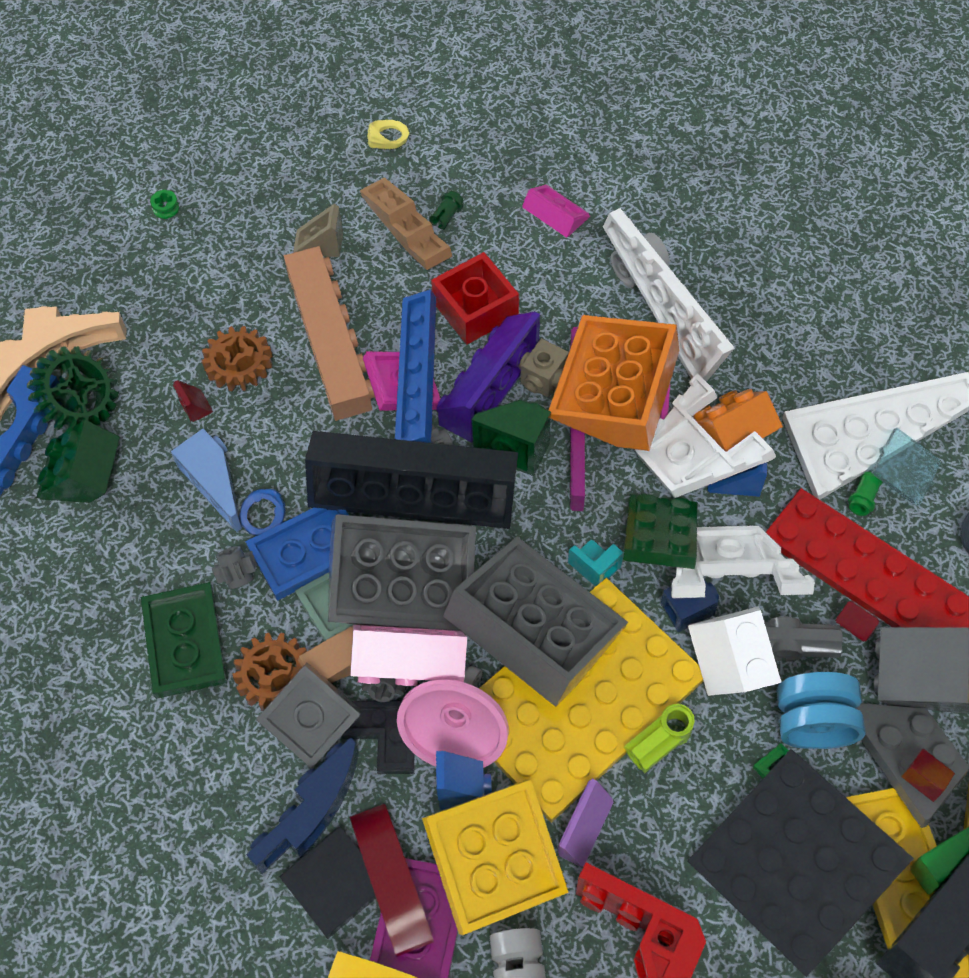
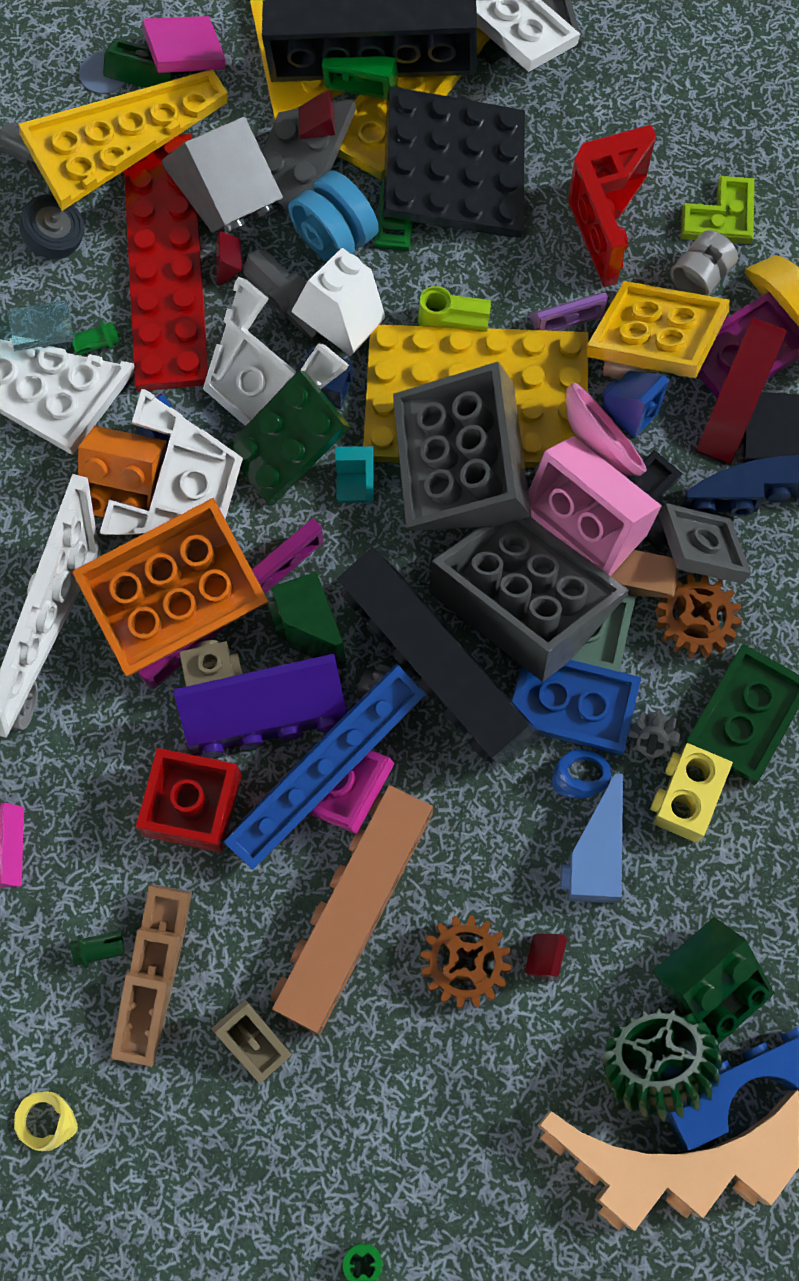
camera: 135 degrees left, 10 degrees up
(175, 557) = (698, 796): none -> light yellow brick

